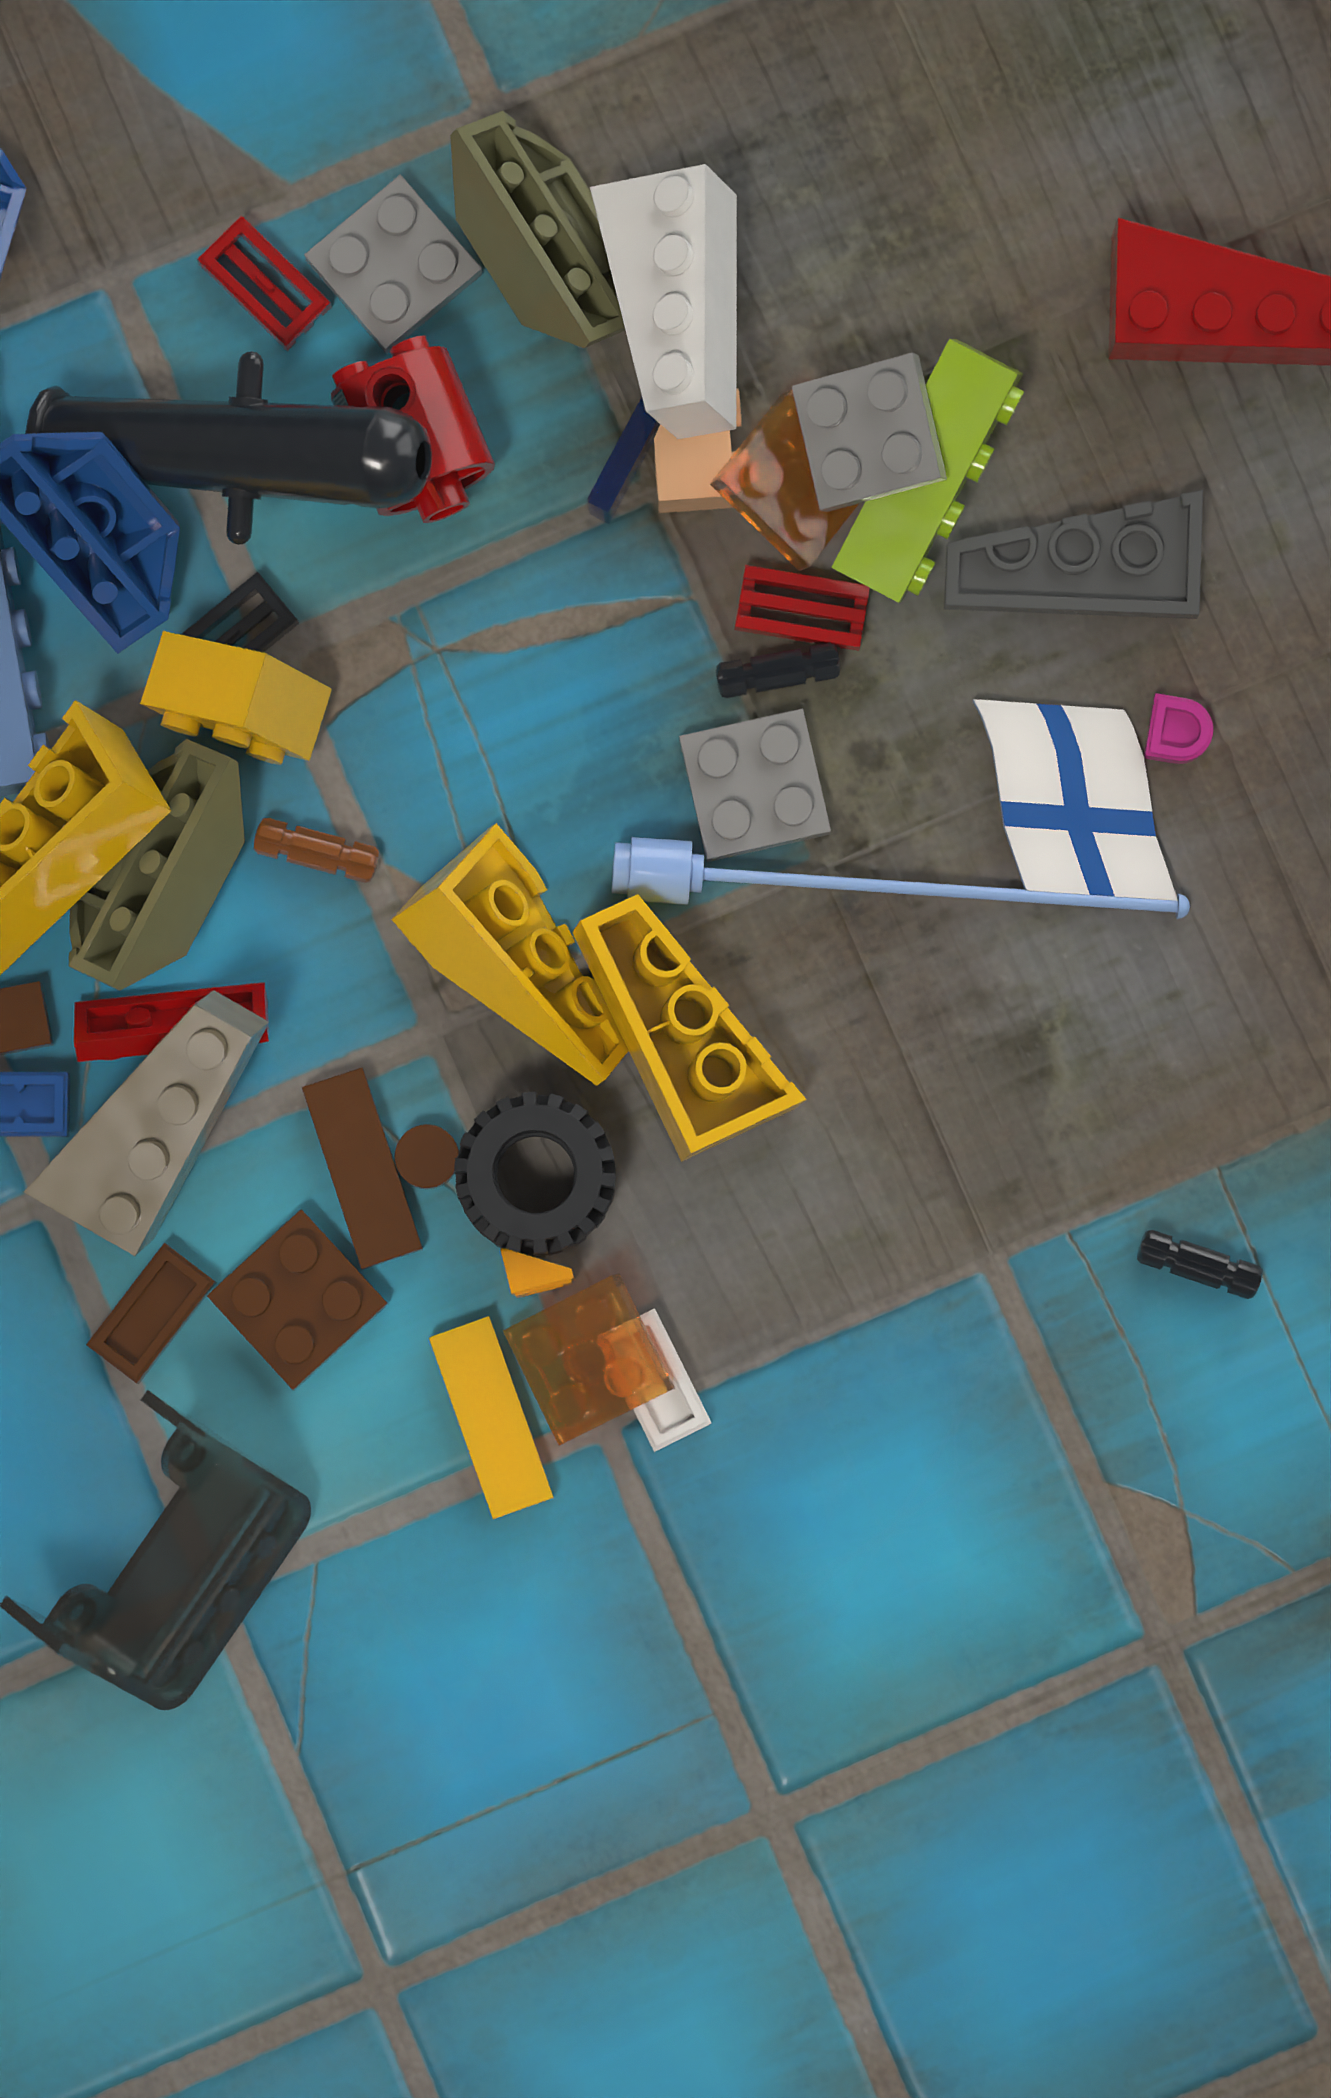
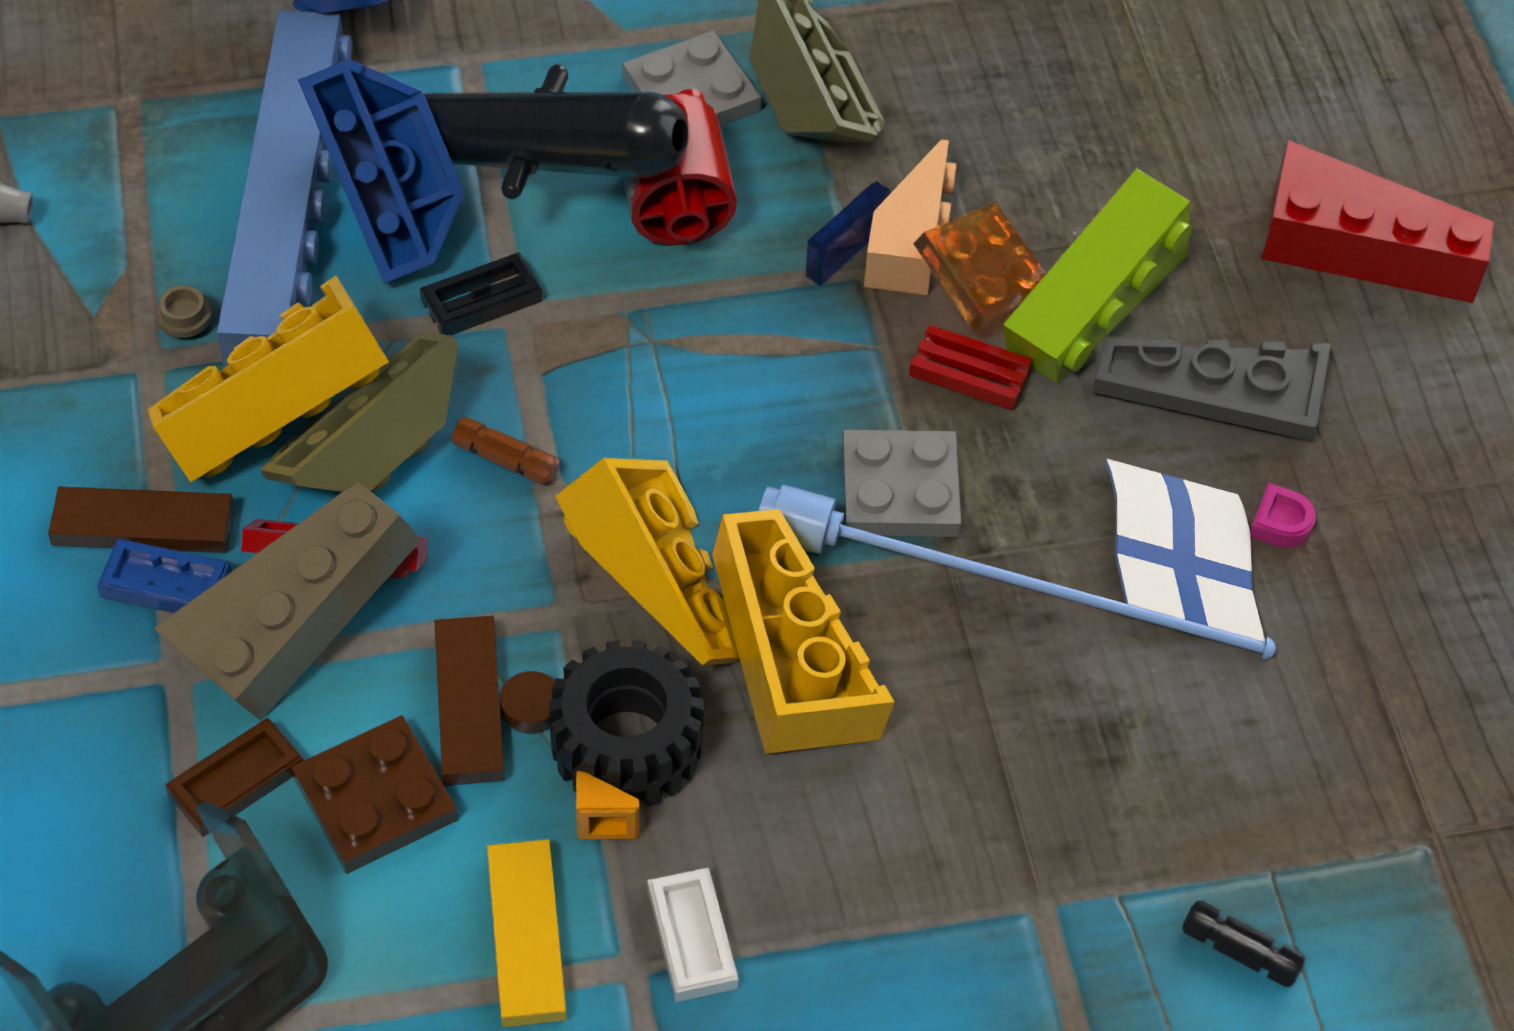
camera: 10 degrees right, 30 degrees down
(238, 695) = (481, 305): yellow brick -> none
(301, 320) = (592, 59): red tile -> none
(588, 1359) = (634, 894): clear orange plate -> none
(677, 292) = (918, 112): white wedge -> none
(778, 670) = (940, 404): black axle -> none
(869, 432) = (1056, 224): light grey plate -> none

